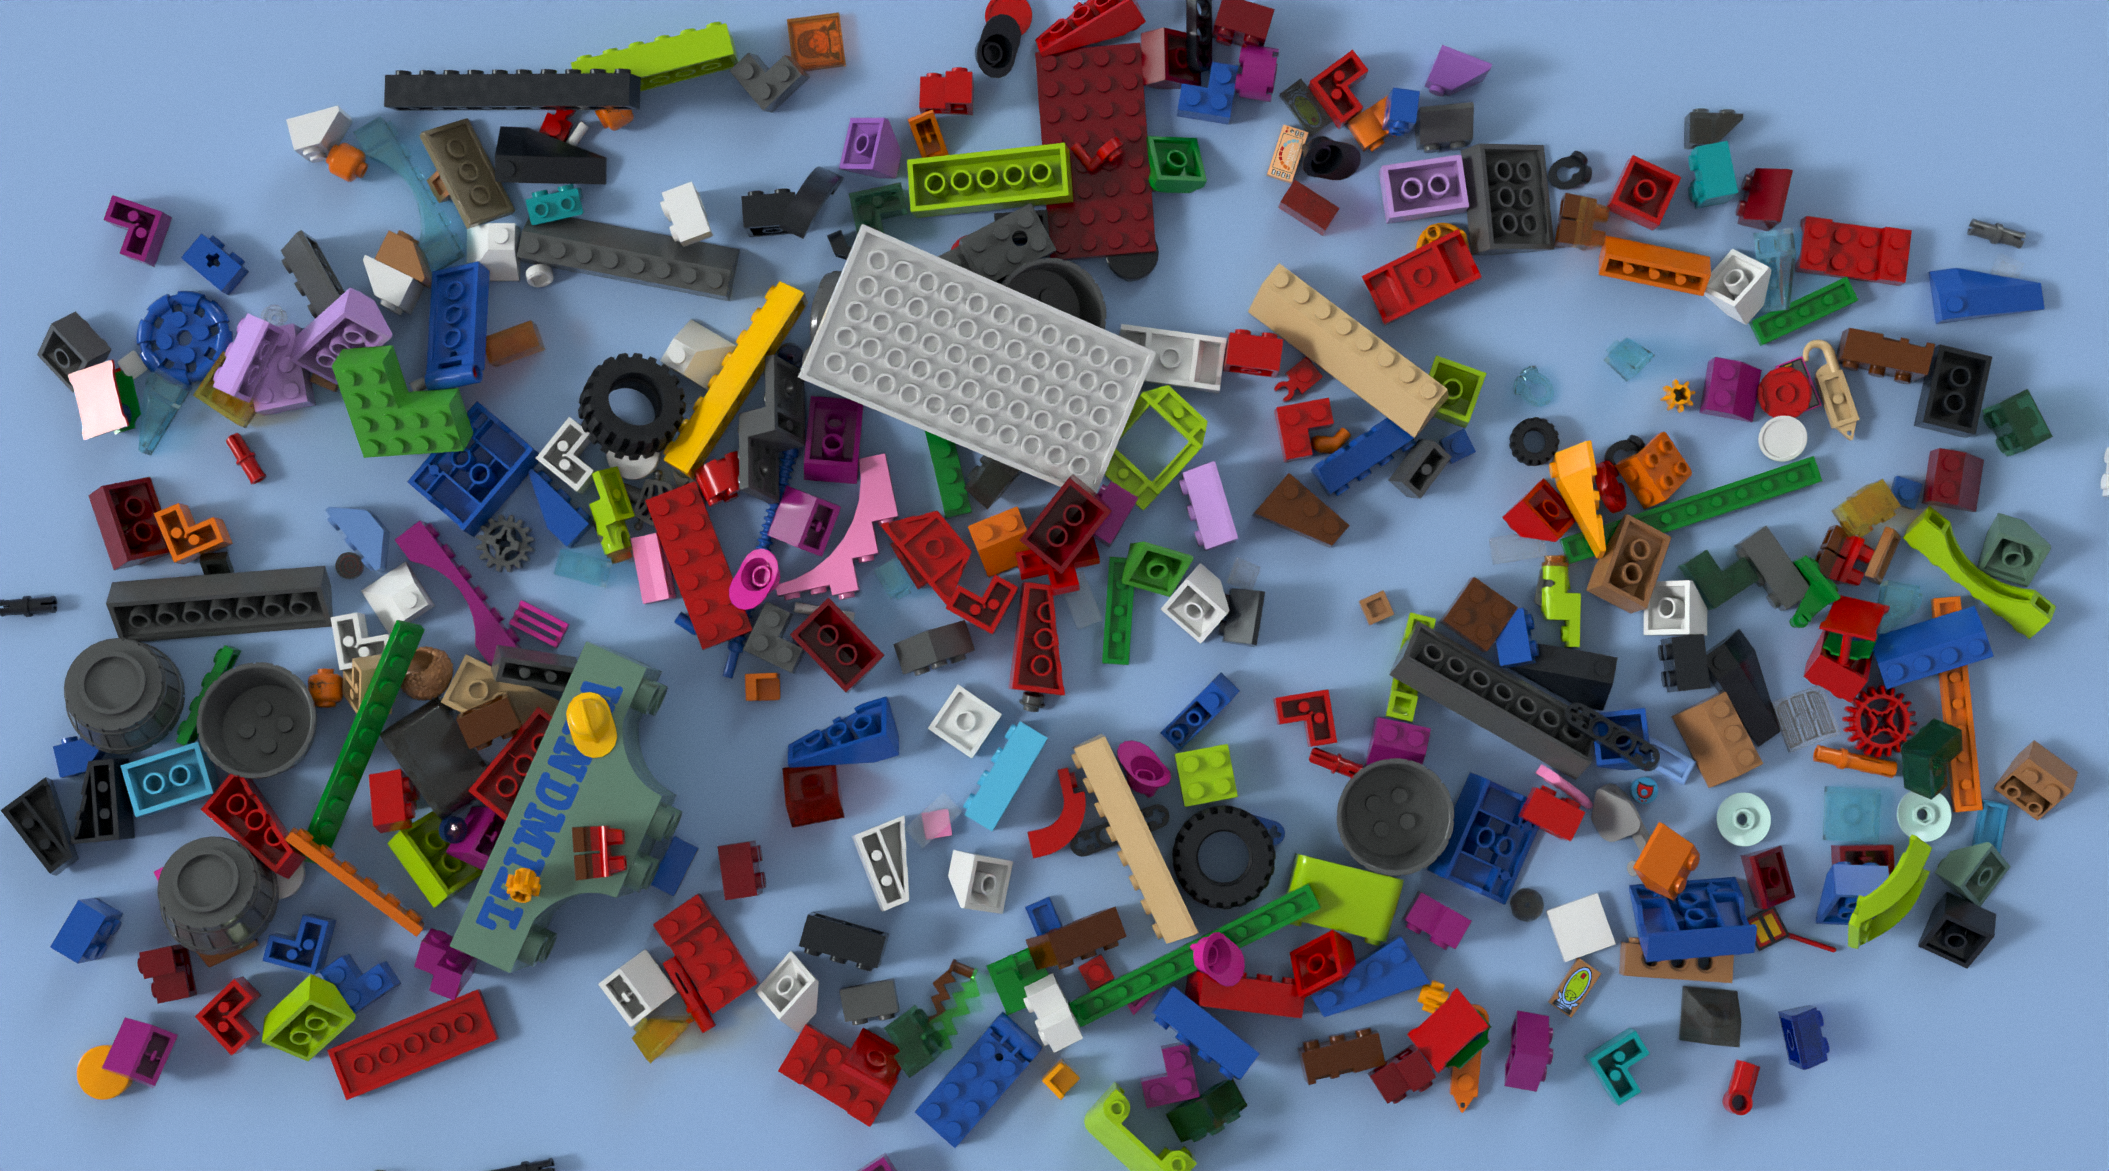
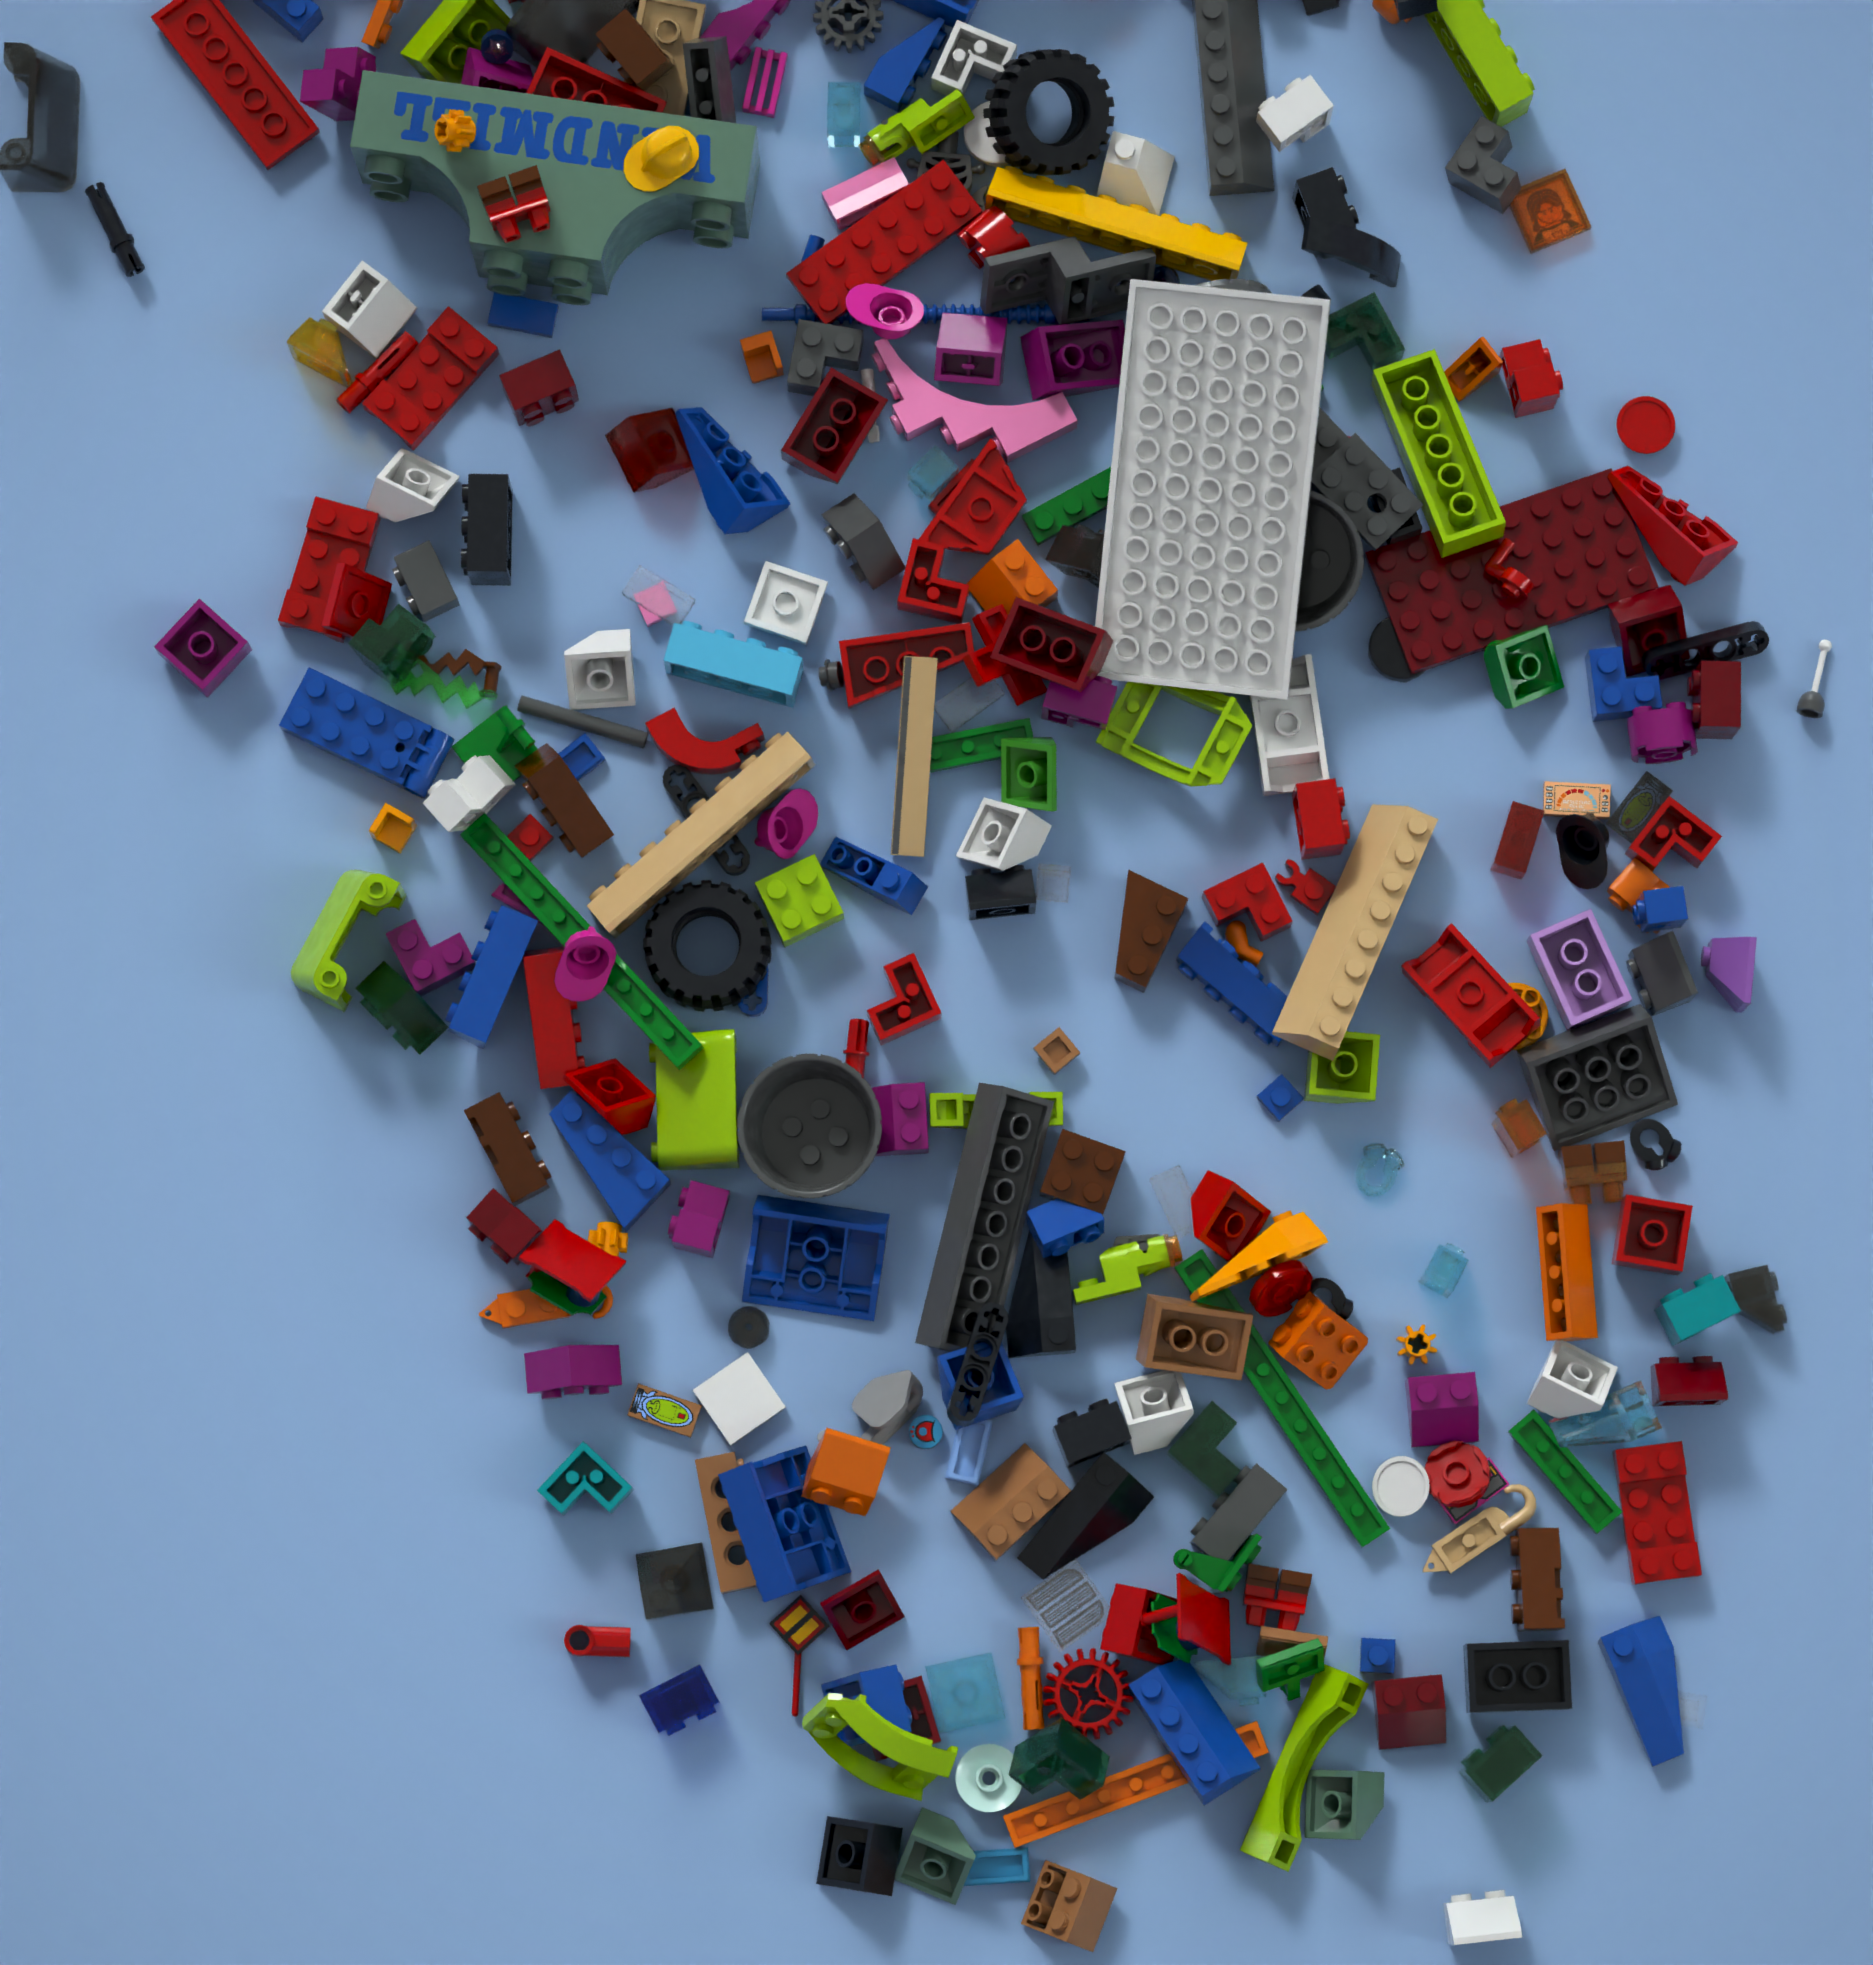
camera: 70 degrees right, 5 degrees down
(871, 148) = (1437, 308): medium lavender slope -> none
(885, 862) = (594, 553): white wedge -> none
(998, 46) = (1603, 420): black piece -> none
(1015, 906) = (582, 721): none -> dark grey piece
(1116, 654) = (914, 756): none -> tan tile
(1208, 507) = (1121, 817): lavender slope -> none
(1420, 468) = (1238, 1055): dark grey brick -> none
(1534, 270) = (1518, 1127): none -> clear orange brick
(1550, 436) = (1323, 1169): black tyre -> none
(1552, 814) = (864, 1319): red brick -> none
(1559, 782) = (903, 1330): bright pink piece -> none
(1756, 814) = (928, 1541): light aqua dish -> none
(1866, 507) = (1341, 1600): clear yellow brick -> none
(1905, 562) = (1289, 1666): none -> green hinge
(1996, 233) = (1730, 1685): dark grey pin -> none

